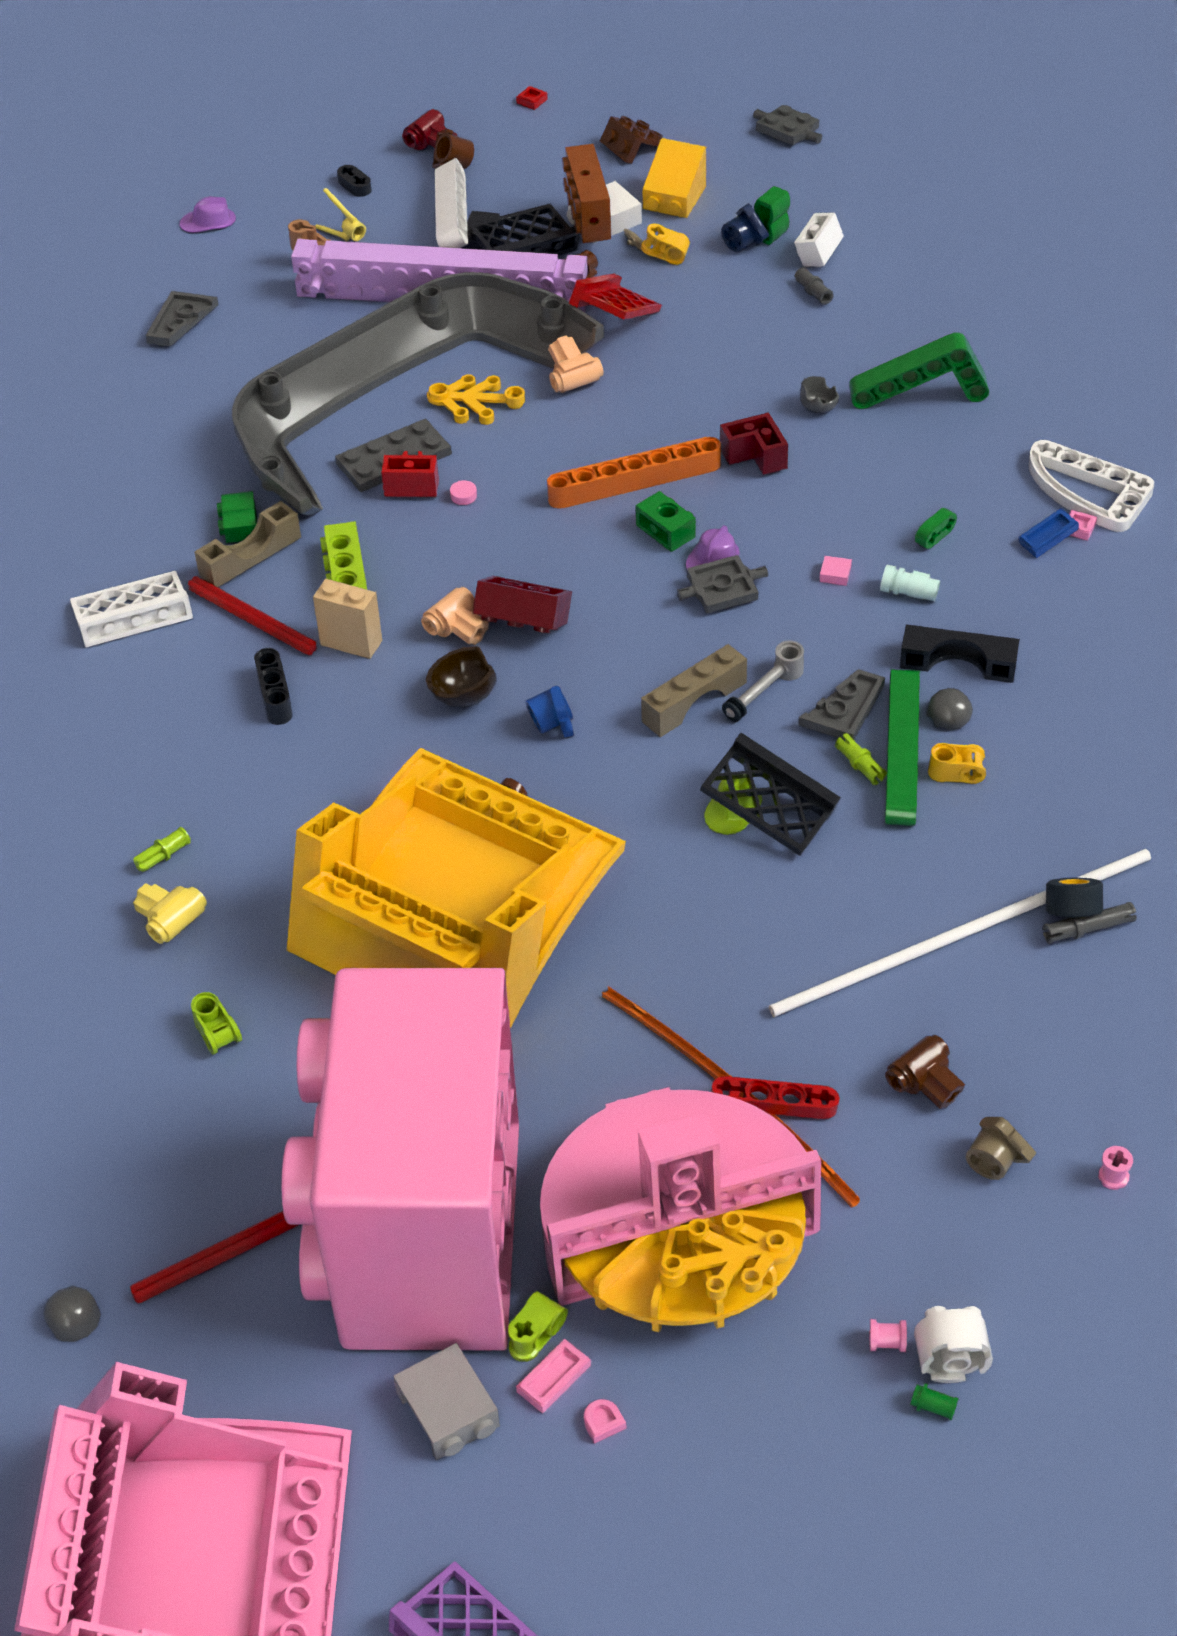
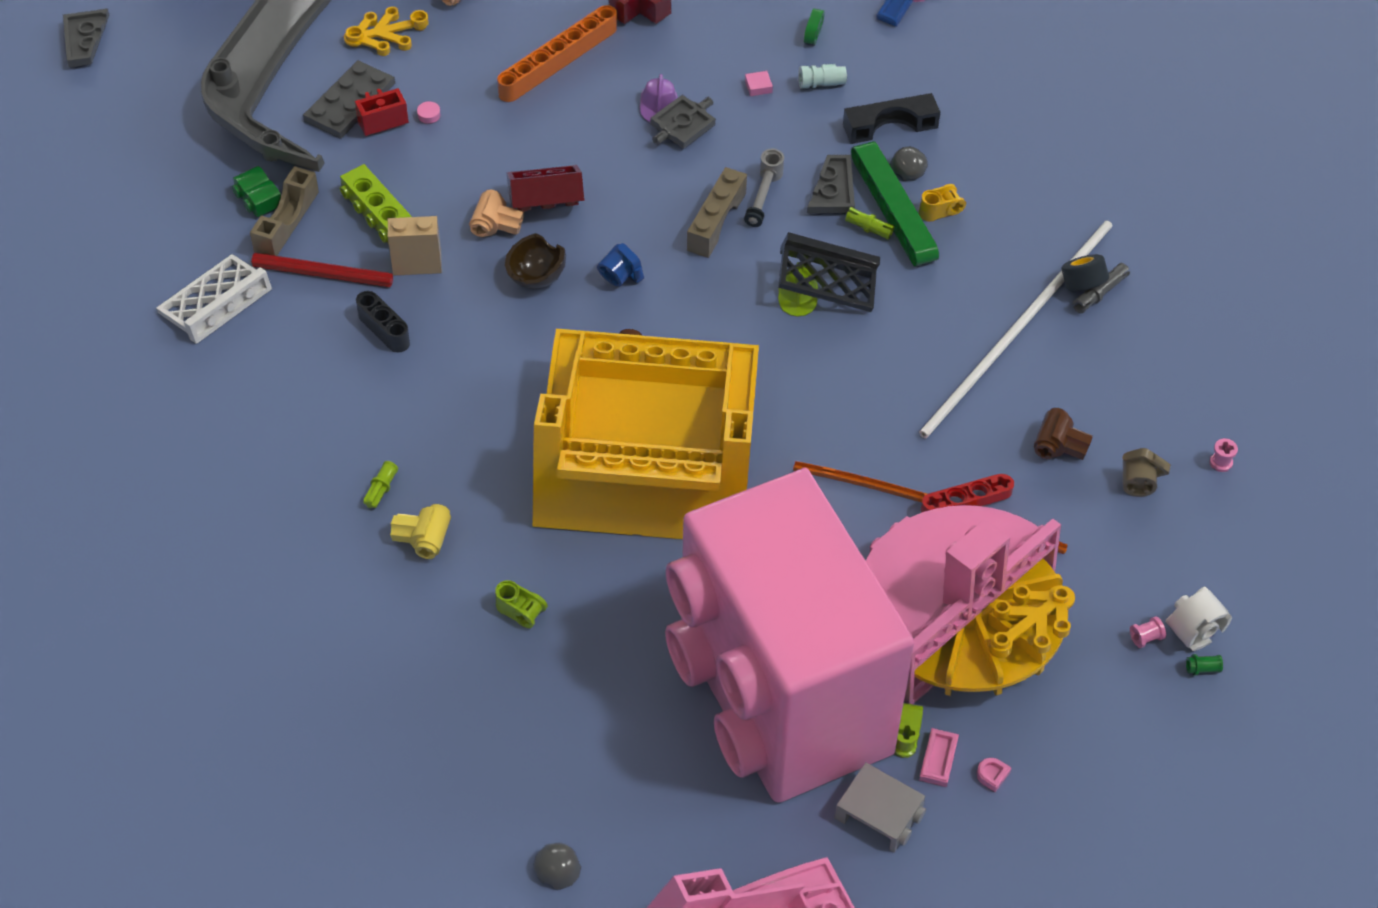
camera: 30 degrees left, 5 degrees up
(209, 1257) = (641, 770): red axle -> none
(665, 521) = (607, 85): green brick -> none

